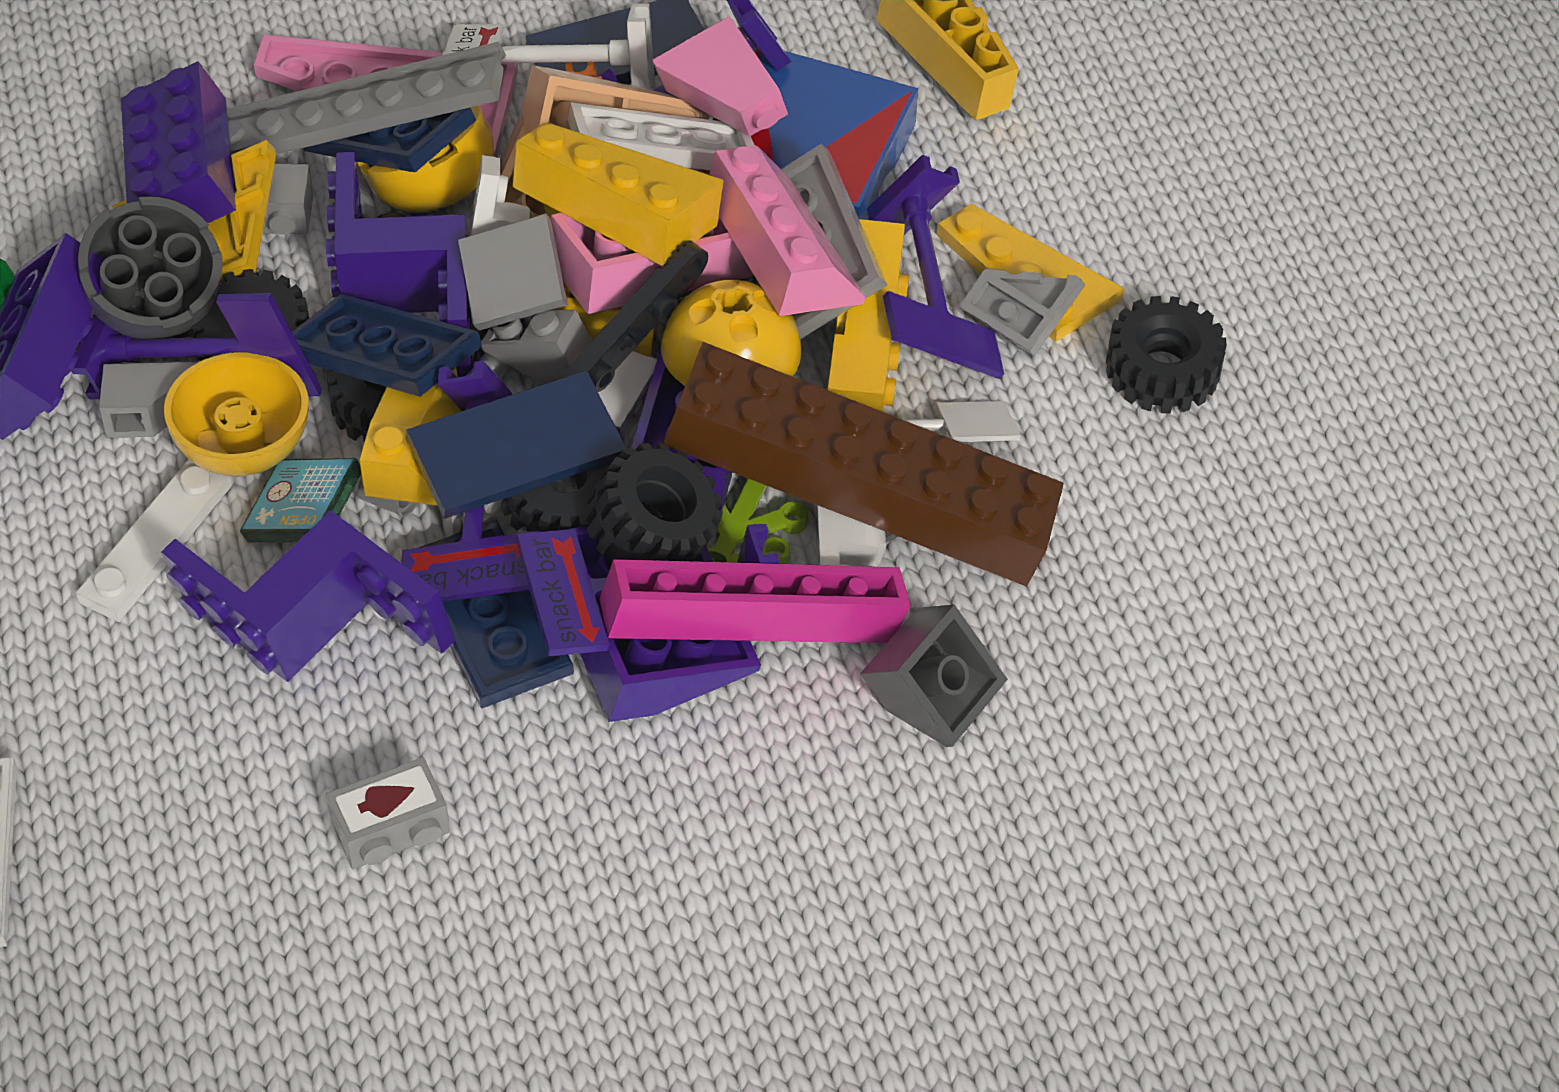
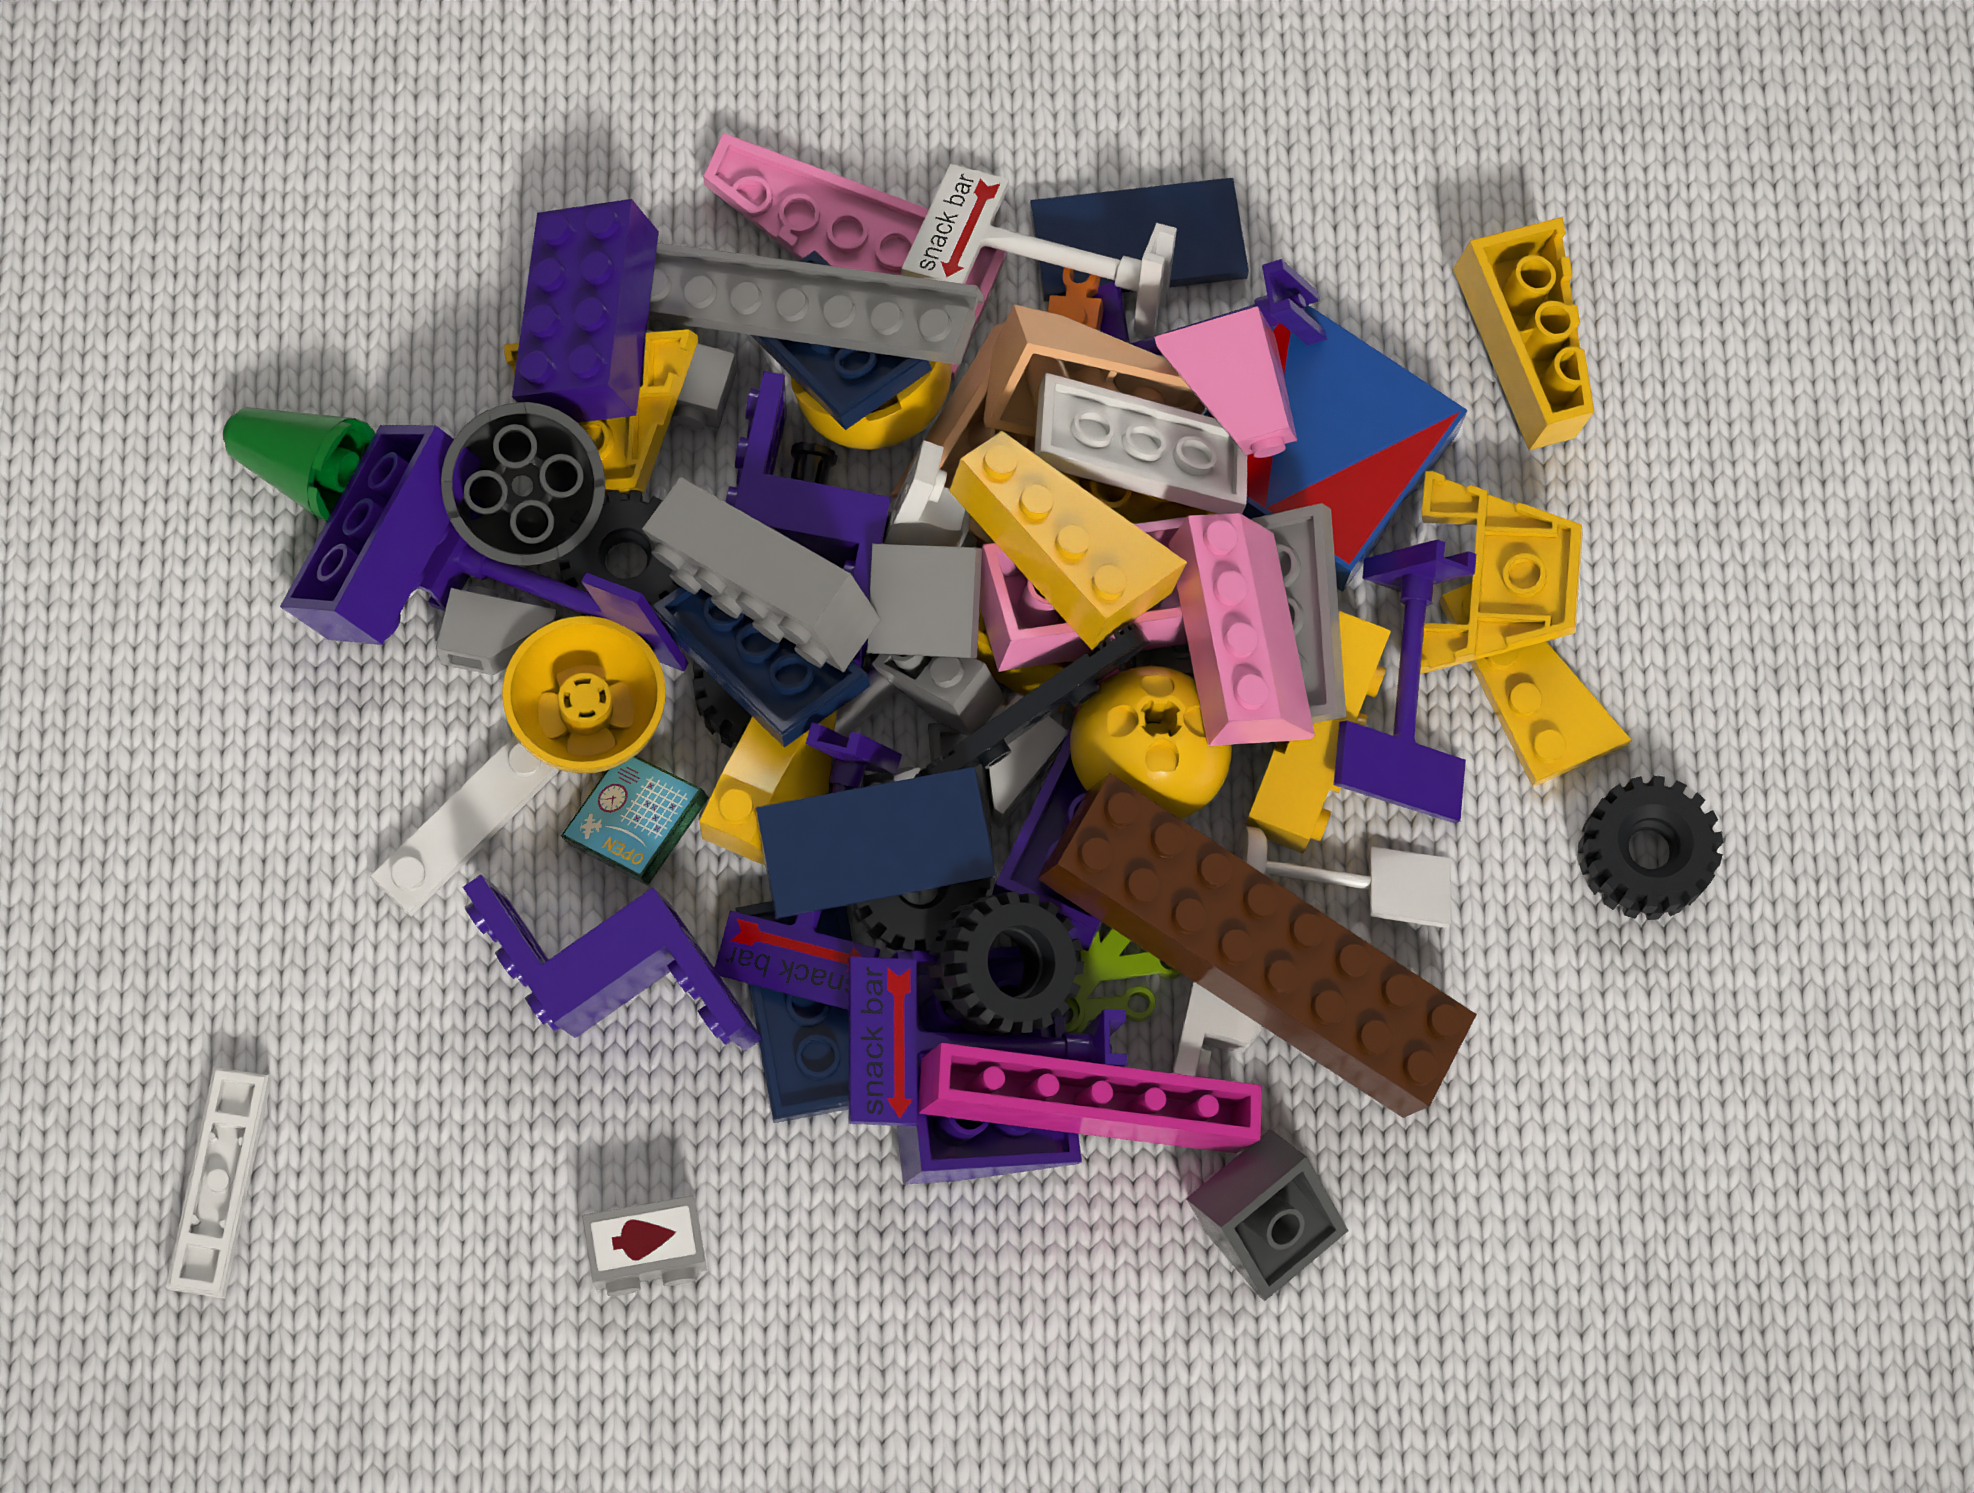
camera: 10 degrees right, 20 degrees up
(370, 273) = (761, 575): none -> light grey brick
(998, 190) = (1522, 577): none -> yellow wing
(1021, 305) = (1502, 742): light grey wing -> none

